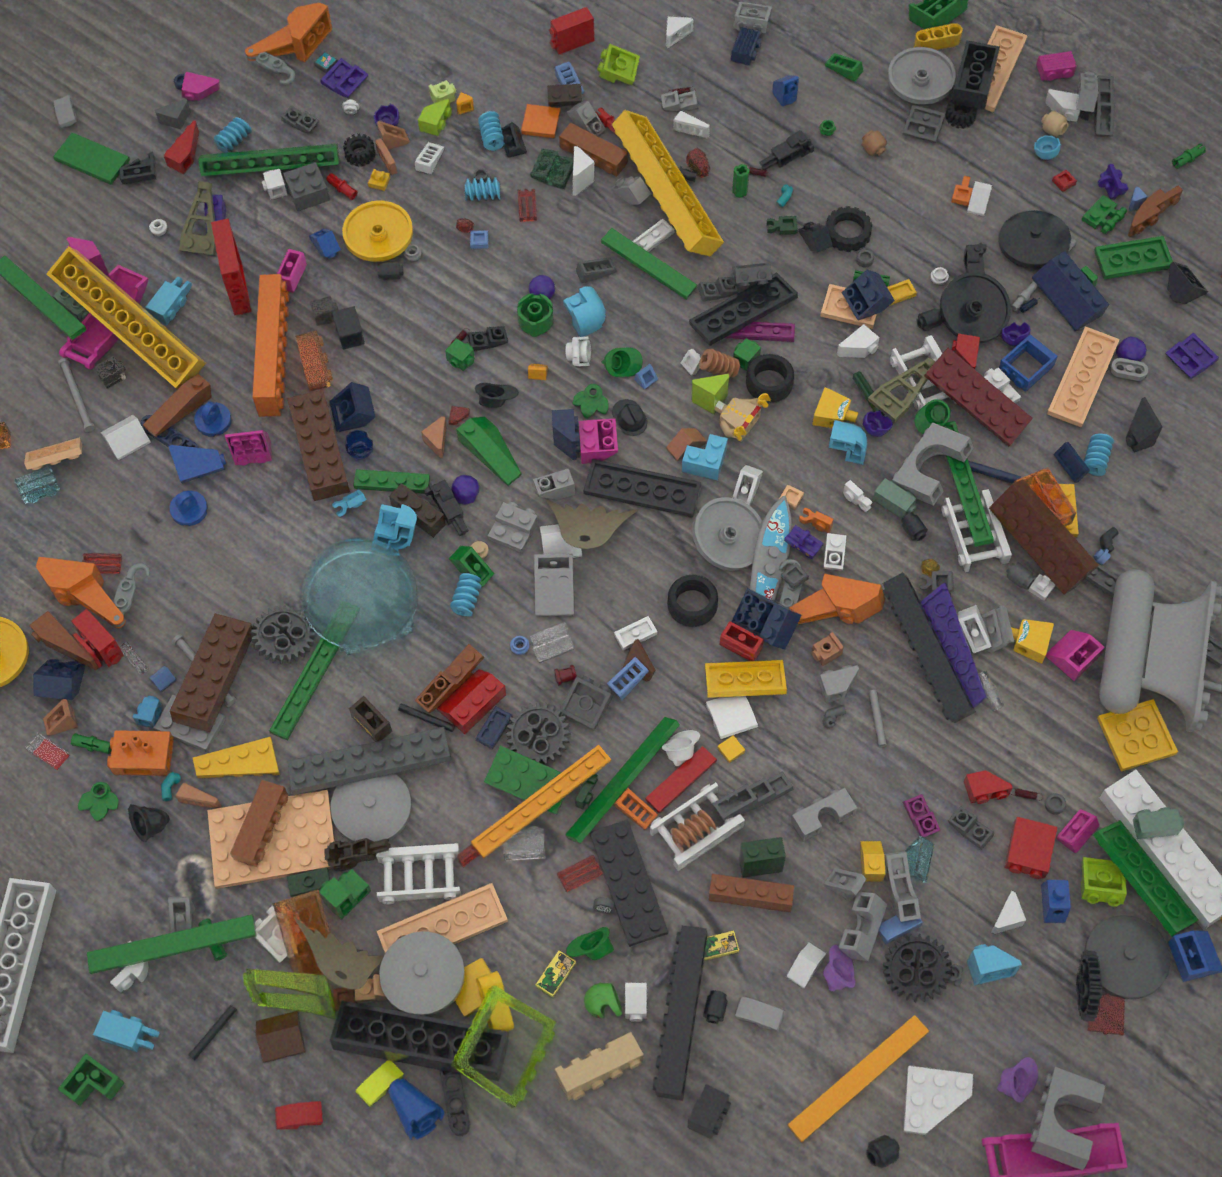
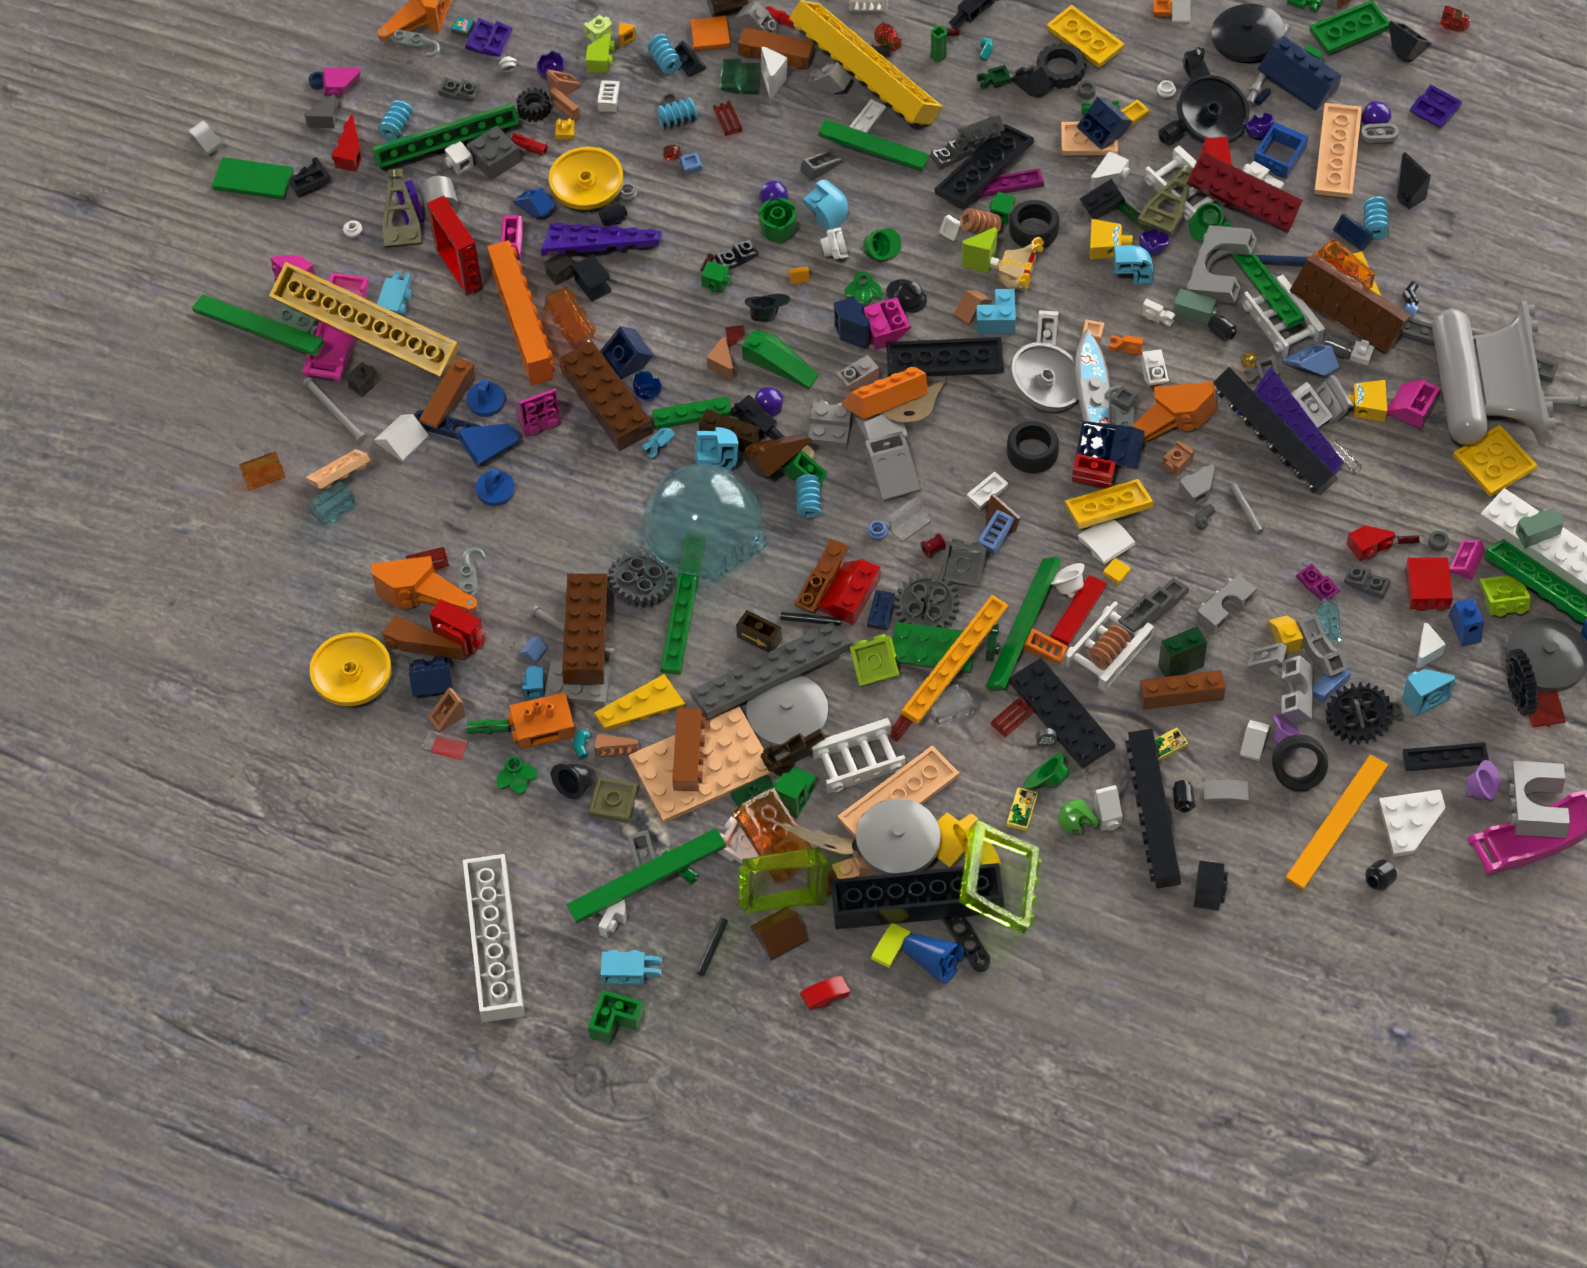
camera: 15 degrees left, 5 degrees down
(178, 851) = (613, 799): none -> olive tile
(242, 216) = (437, 187): none -> light grey piece
(365, 290) = (596, 238): none -> dark purple wing
(446, 543) = (770, 455): none -> reddish brown slope
(467, 778) = (874, 660): none -> lime plate
(572, 512) = (887, 393): none -> orange slope
(599, 1066) = (1093, 875): tan wedge -> none
(646, 376) = (909, 253): medium blue slope -> none
(804, 542) = (1121, 367): dark purple hips -> none
(835, 1026) = (1305, 782): none -> black tyre
(842, 370) = (1102, 199): none -> black plate
(881, 206) = (1088, 36): none -> yellow plate
(989, 1039) = (1444, 756): none -> black plate
(991, 582) = (1314, 359): none -> medium blue slope

